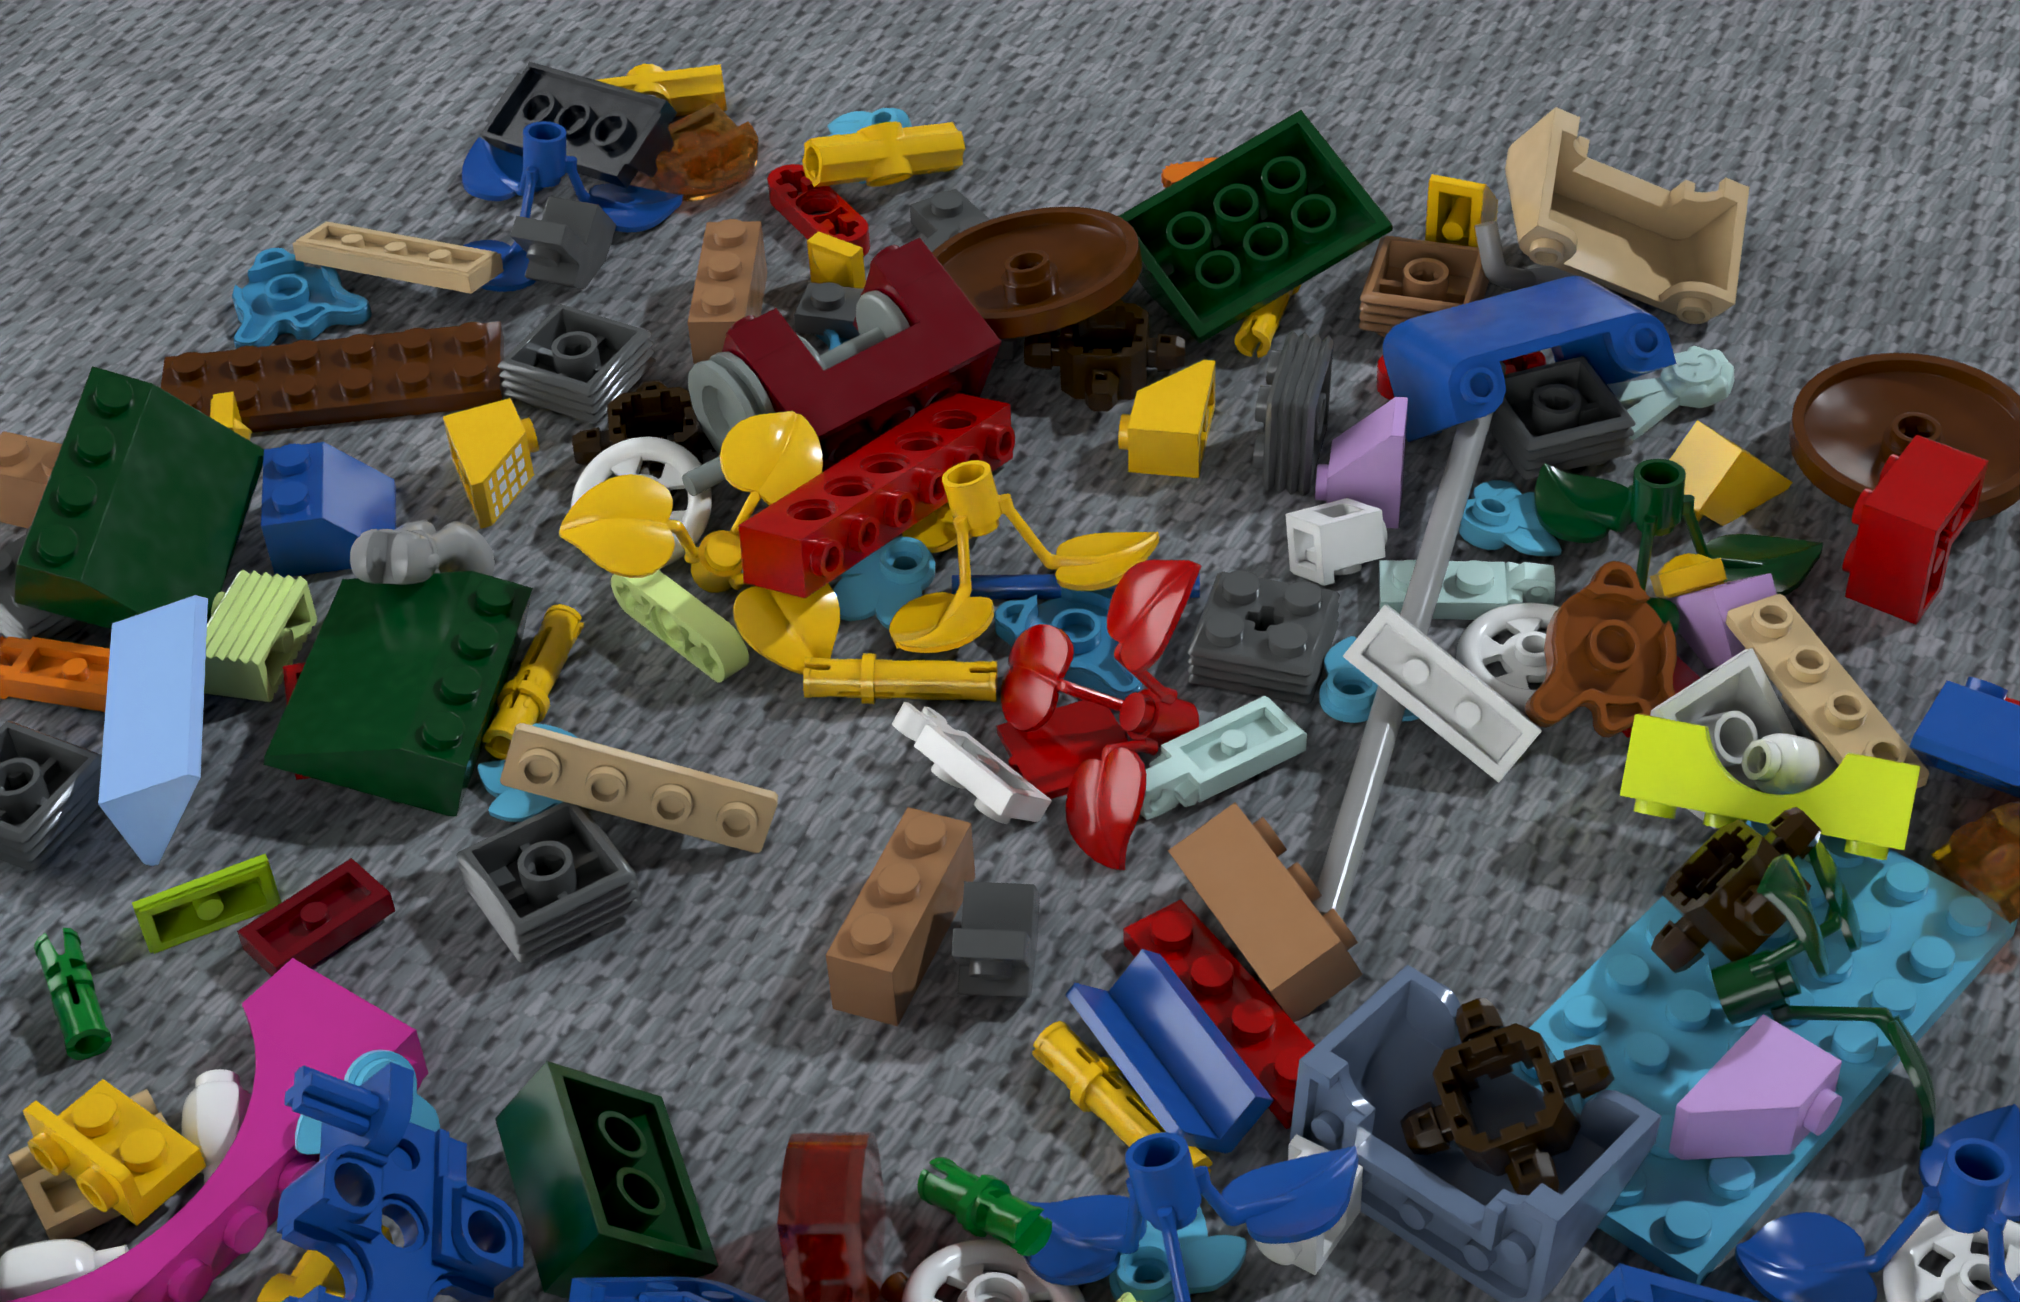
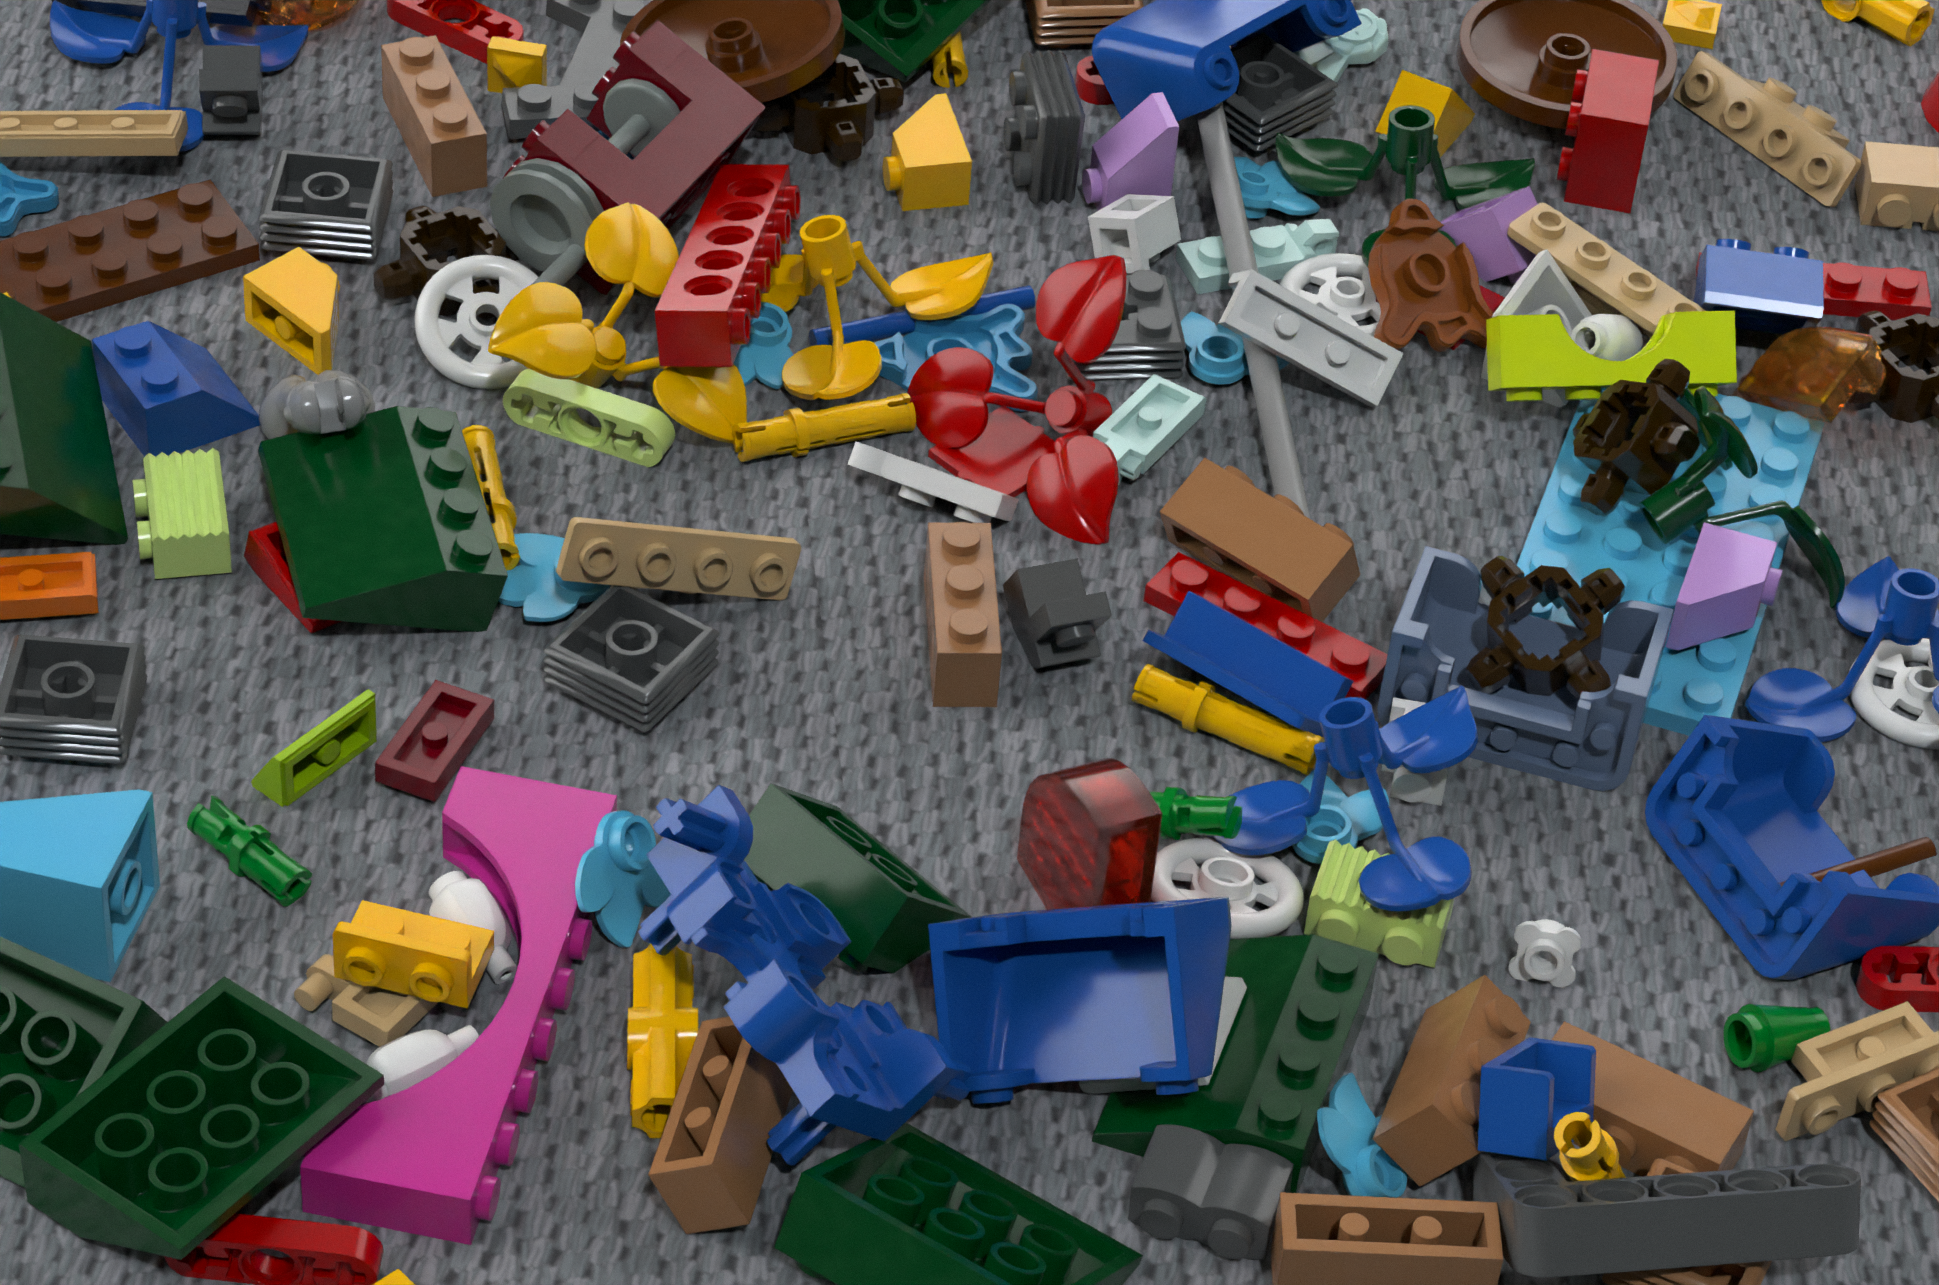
camera: 30 degrees left, 0 degrees up
(154, 723) = (185, 598): light blue slope -> none
(1687, 574) = (1451, 201): yellow tile -> none

